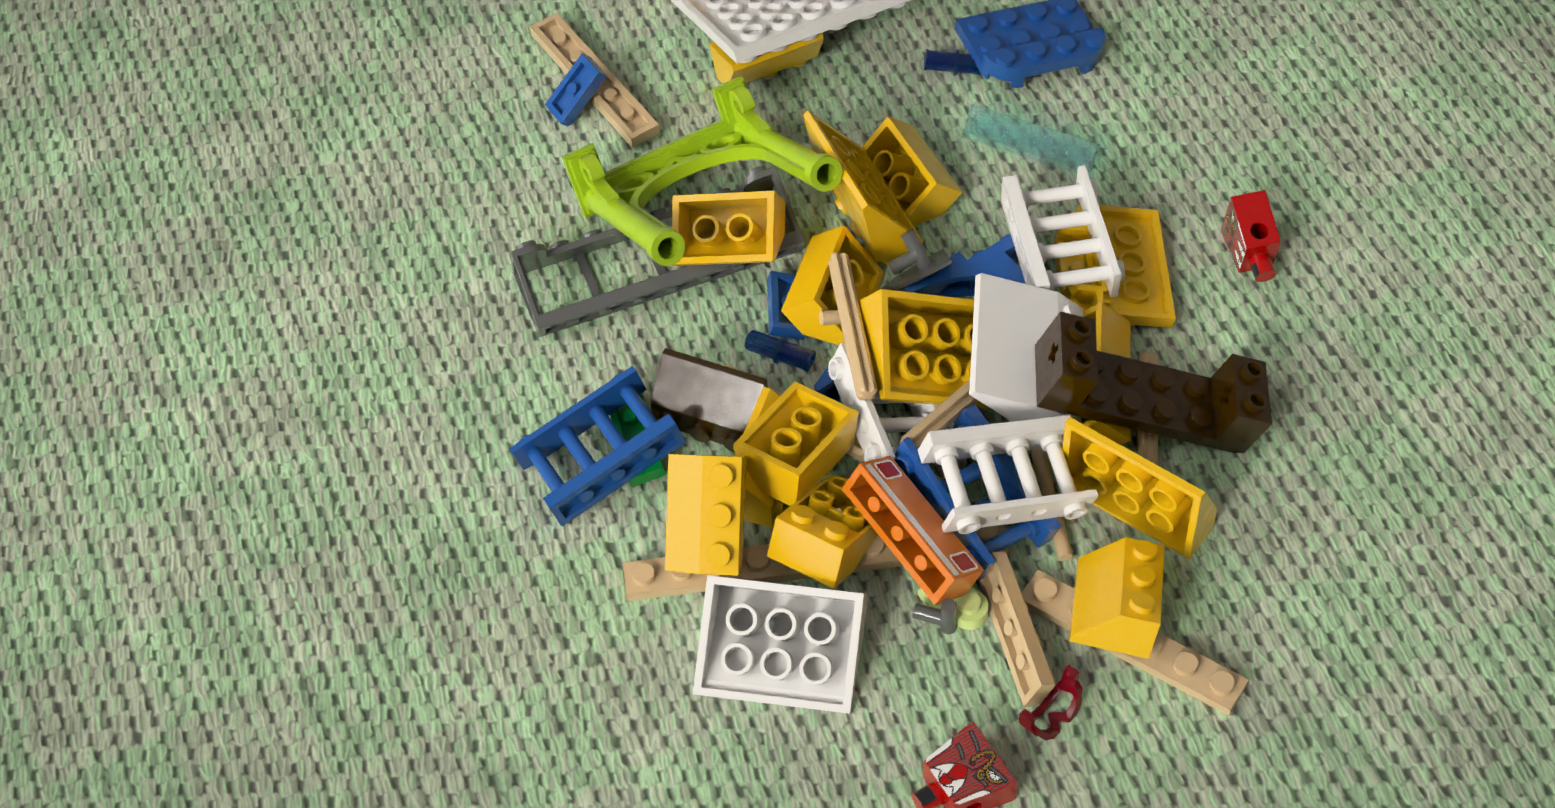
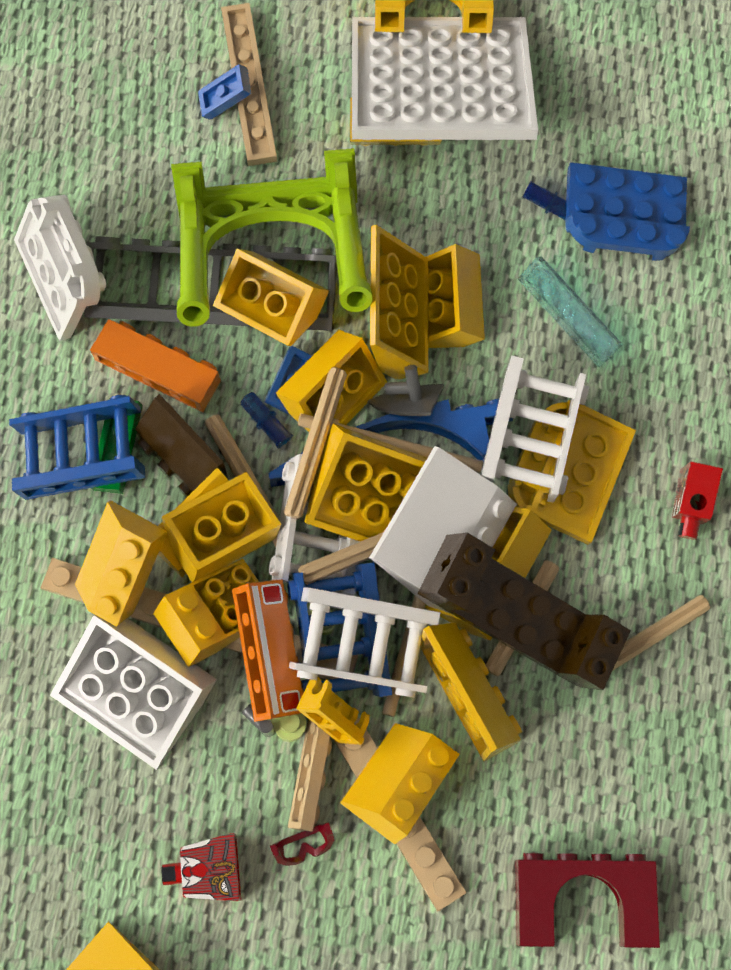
camera: 20 degrees right, 20 degrees up
(487, 288) = (59, 262): none -> white plate
(624, 343) = (155, 364): none -> orange brick
(1012, 561) = (332, 713): none -> yellow hinge
(1295, 362) = (662, 629): none -> tan axle
(1403, 592) = (629, 880): none -> dark red arch

